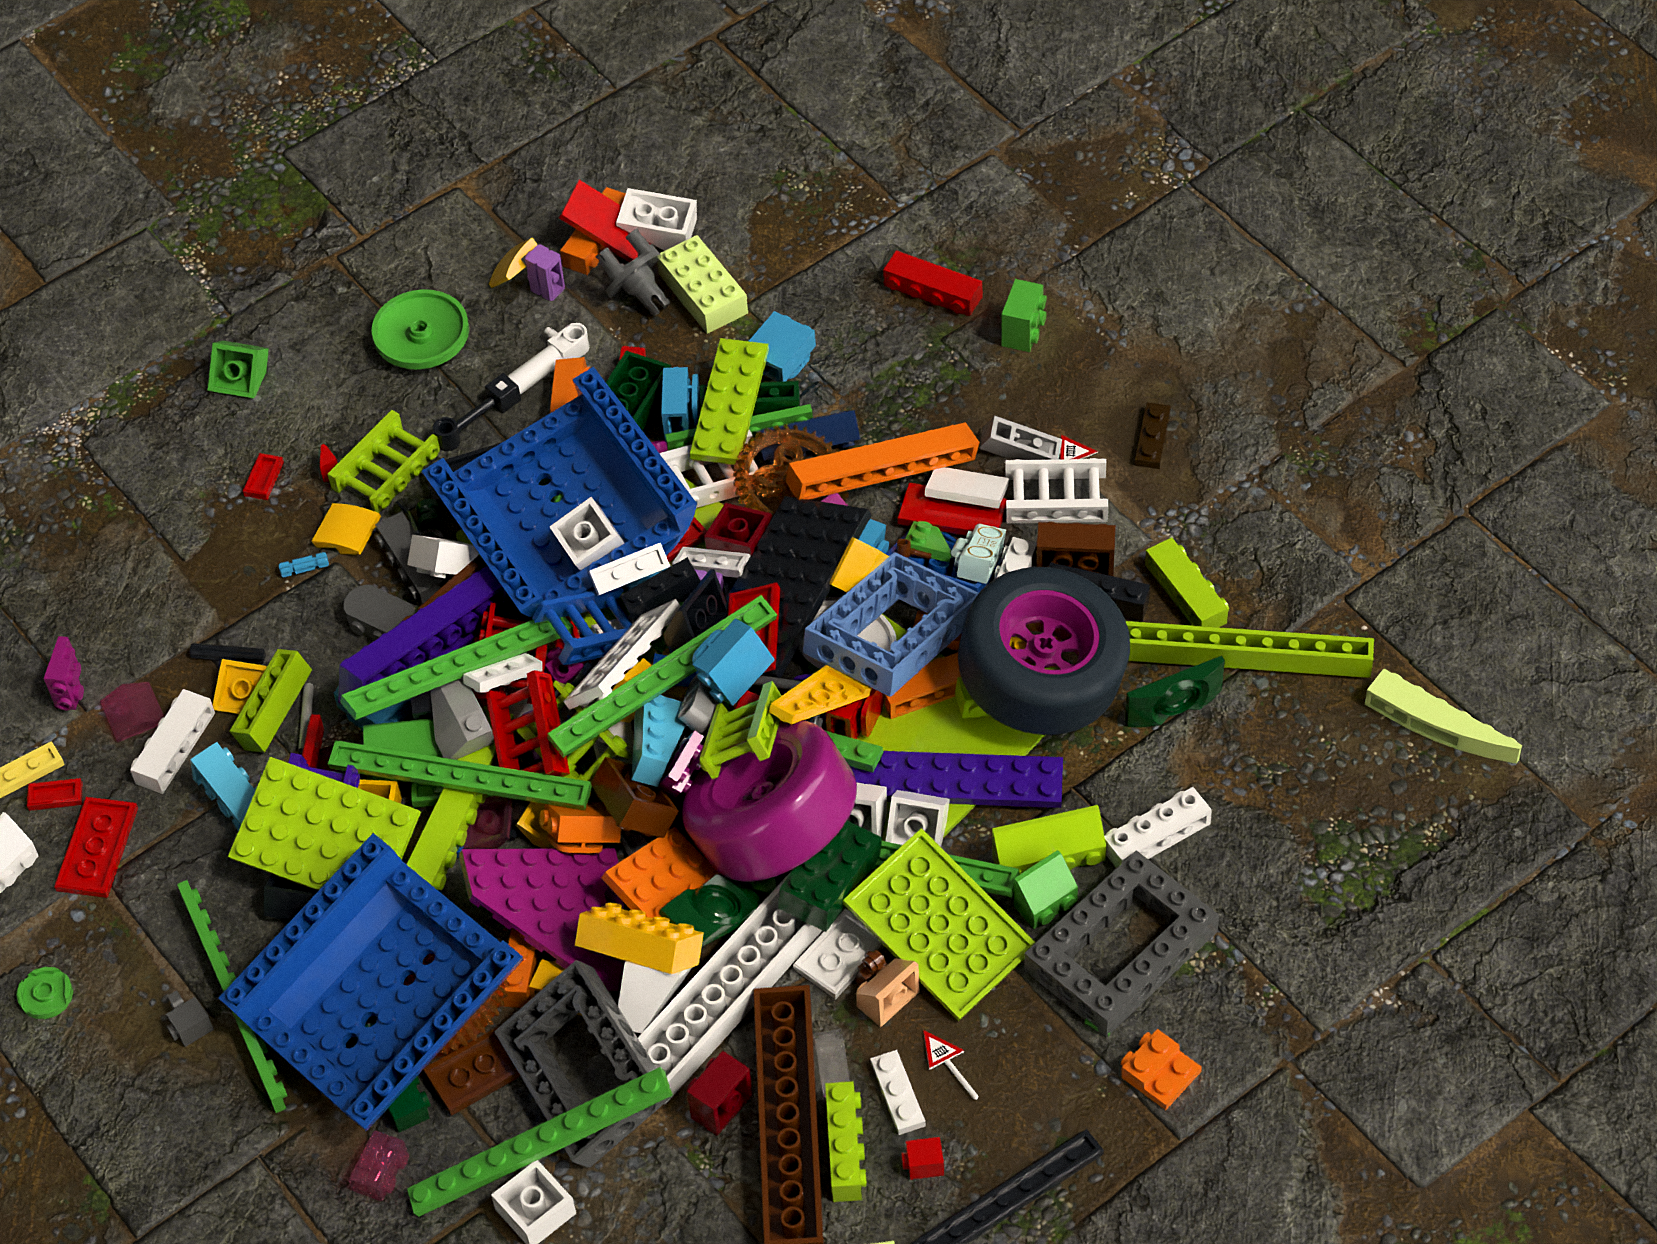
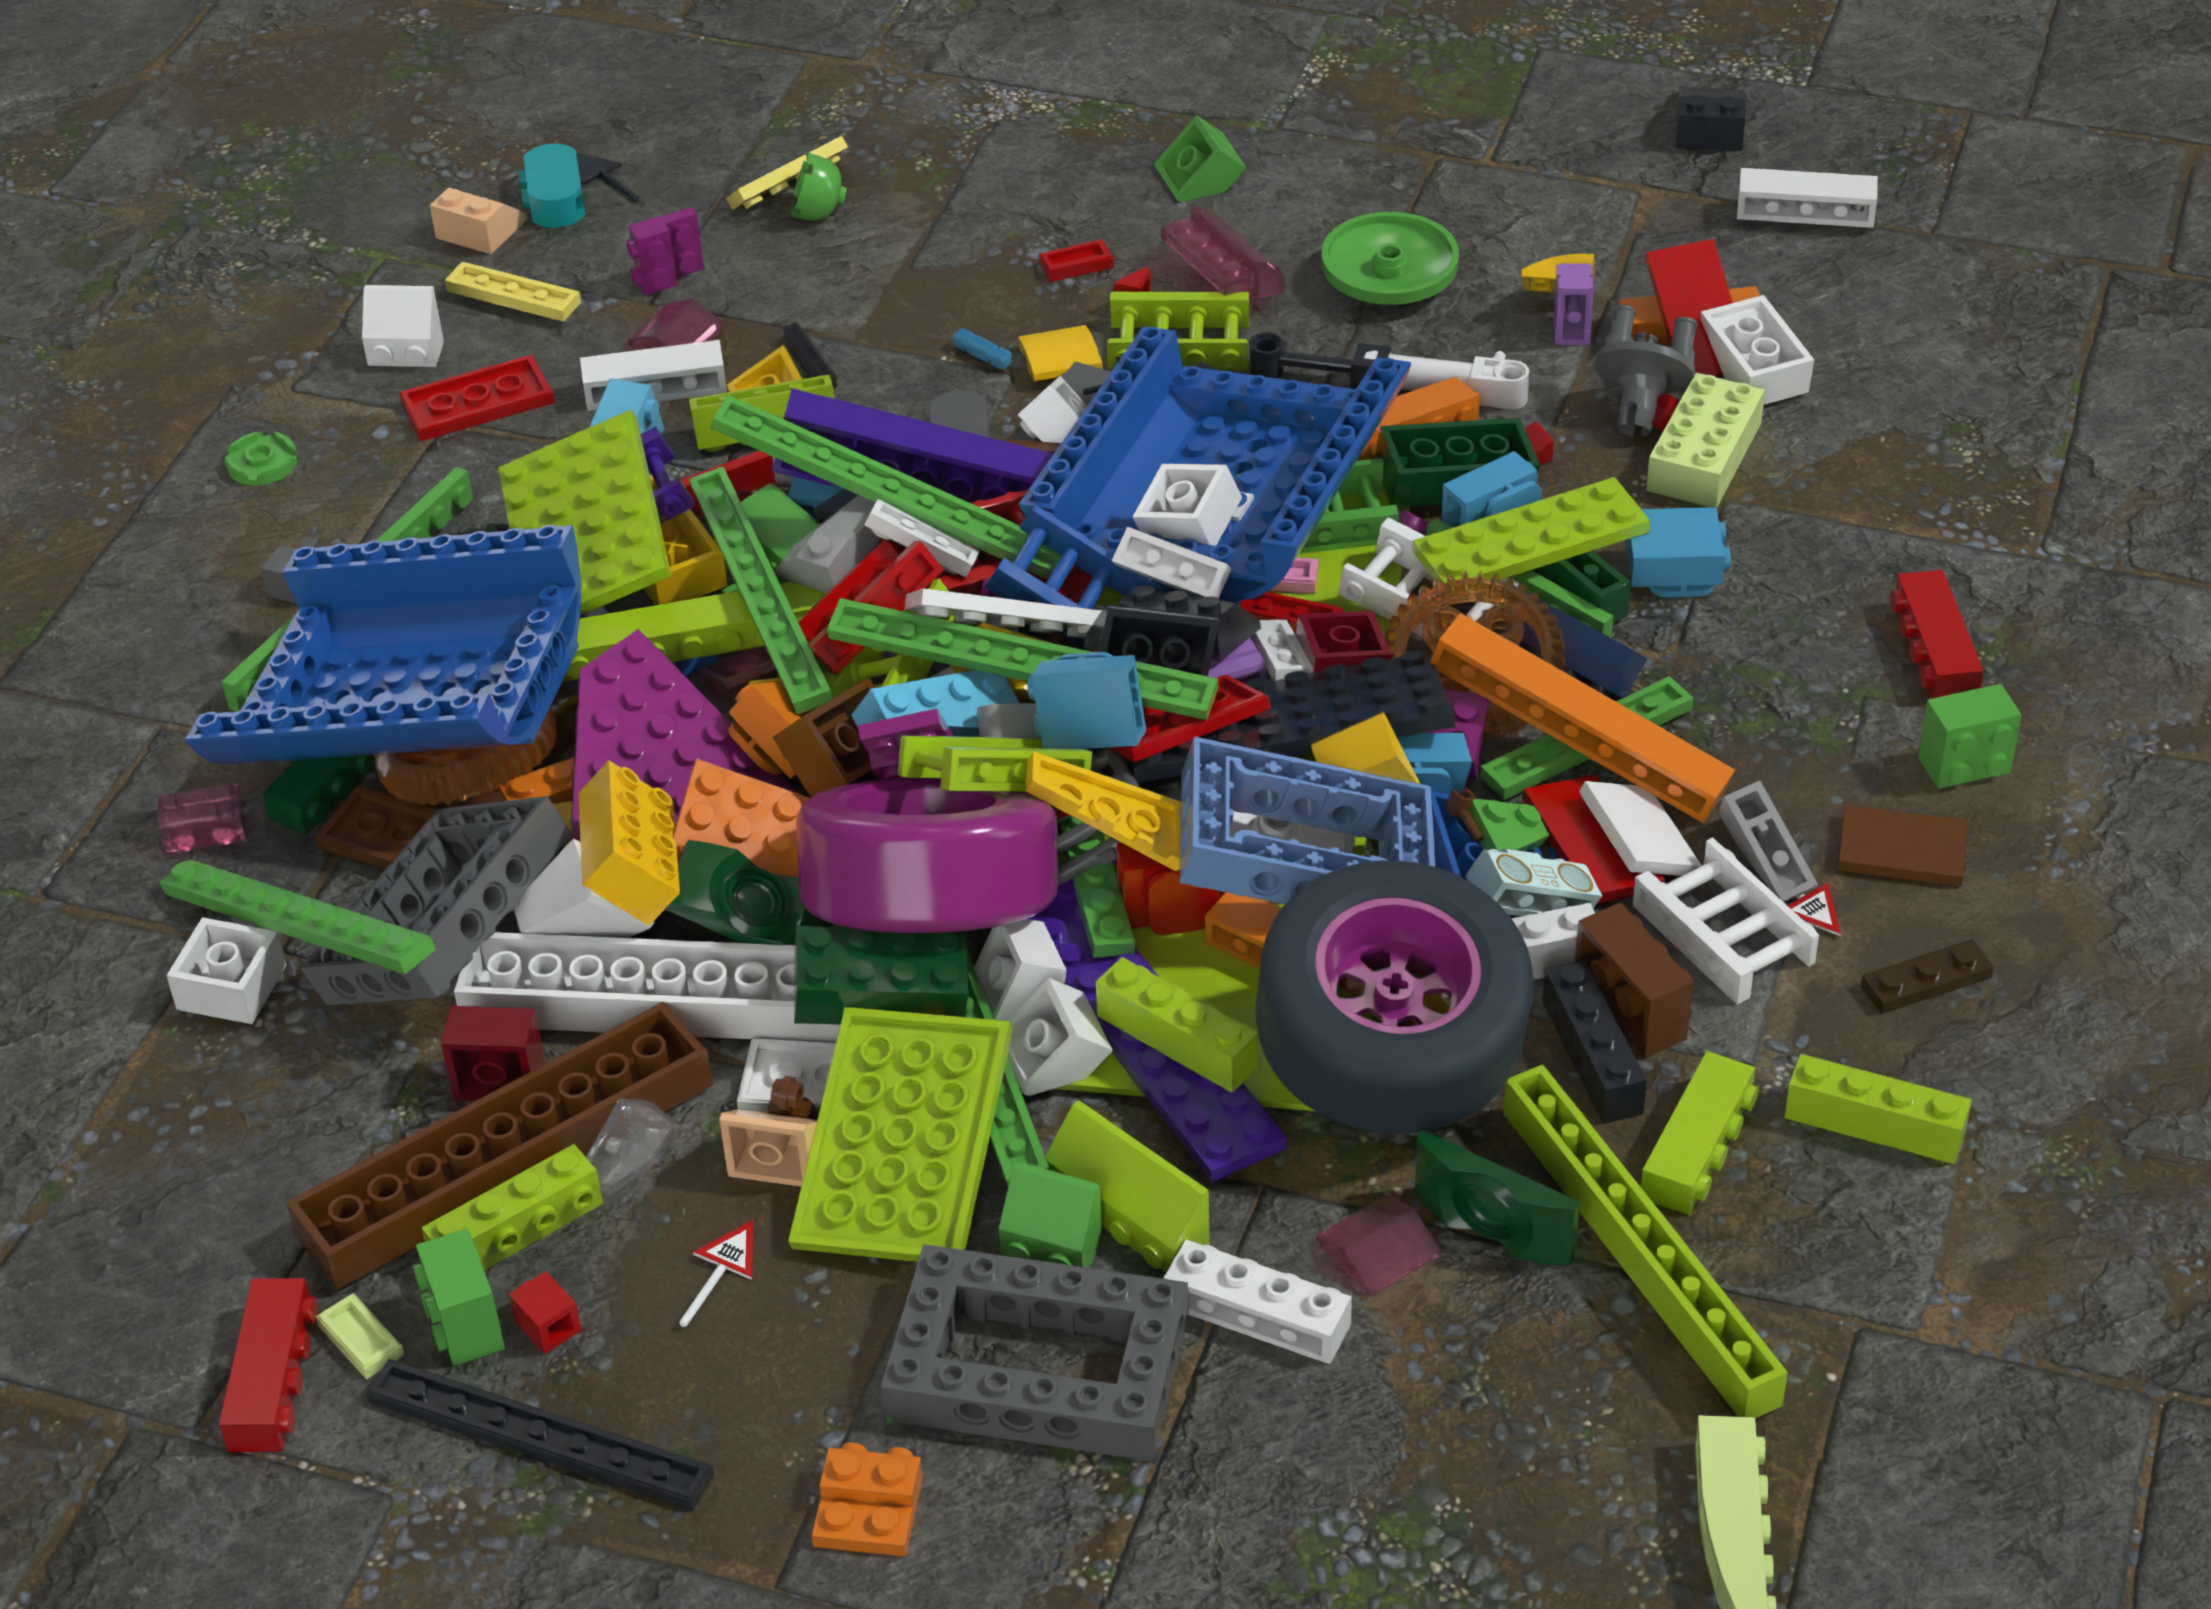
camera: 55 degrees right, 10 degrees down
(36, 575) = (777, 180): none -> light yellow plate
(54, 794) = (520, 334): red tile -> none
(73, 568) = (817, 189): none -> bright green cylinder
(342, 403) = (1222, 255): none -> clear pink brick
(429, 115) = (1711, 118): none -> black slope
(547, 120) = (1807, 197): none -> white brick
(665, 285) = (1664, 410): none -> red tile
(880, 494) = (1550, 757): none -> bright green plate
(893, 1191) = (457, 1297): none -> bright green brick
(897, 1092) = (635, 1239): white plate -> none
(963, 758) = (1177, 1024): none -> lime brick
(1059, 390) = (1903, 845): none -> reddish brown tile
(1151, 759) = (1380, 1244): none -> clear pink slope
(1227, 507) = (1877, 1108): none -> lime brick

